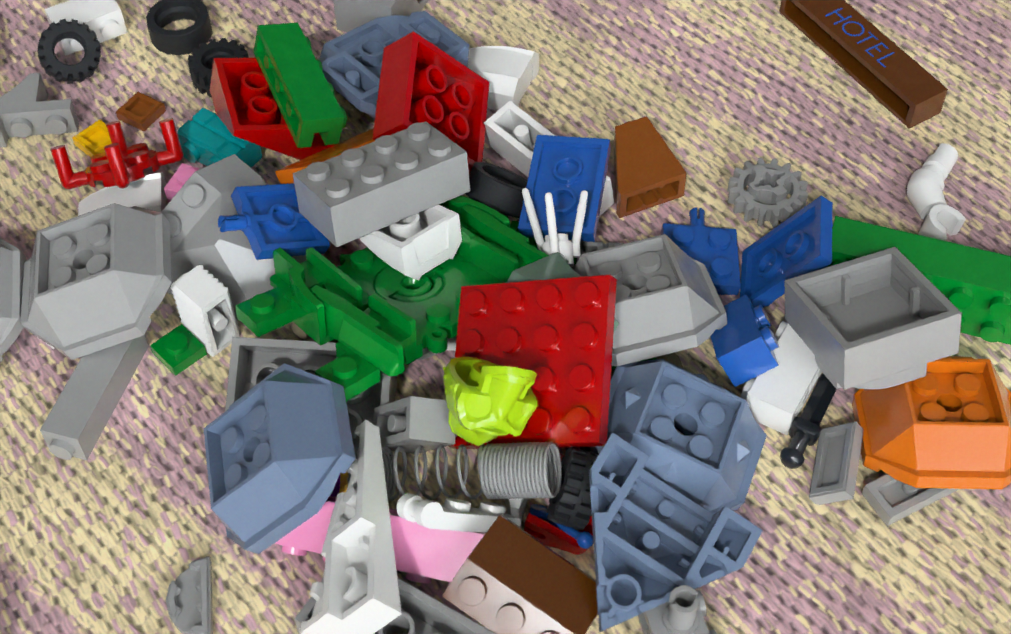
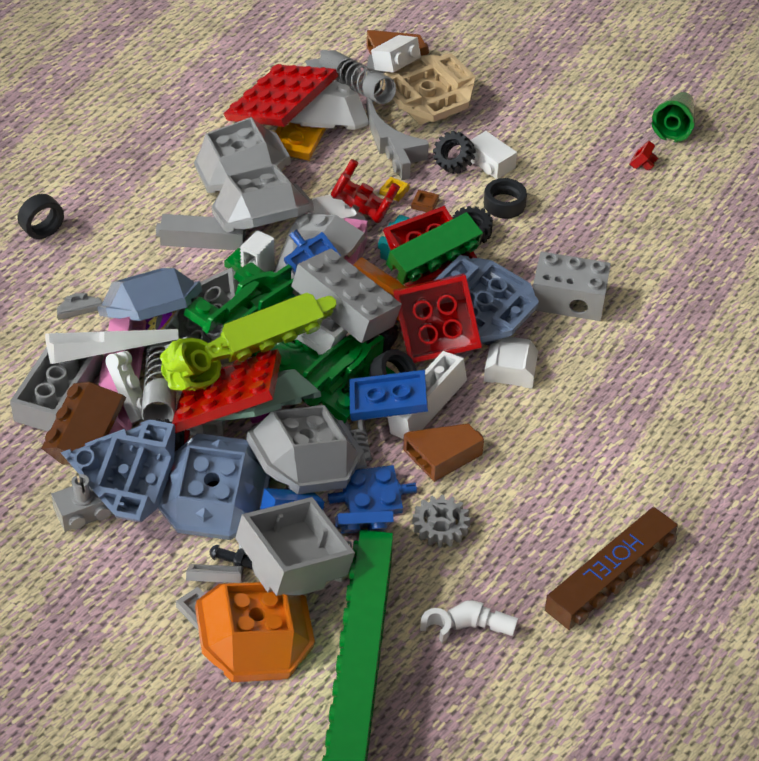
camera: 75 degrees right, 5 degrees down
(444, 274) = (270, 326): none -> lime hinge
(556, 242) = (332, 396): white plant -> none

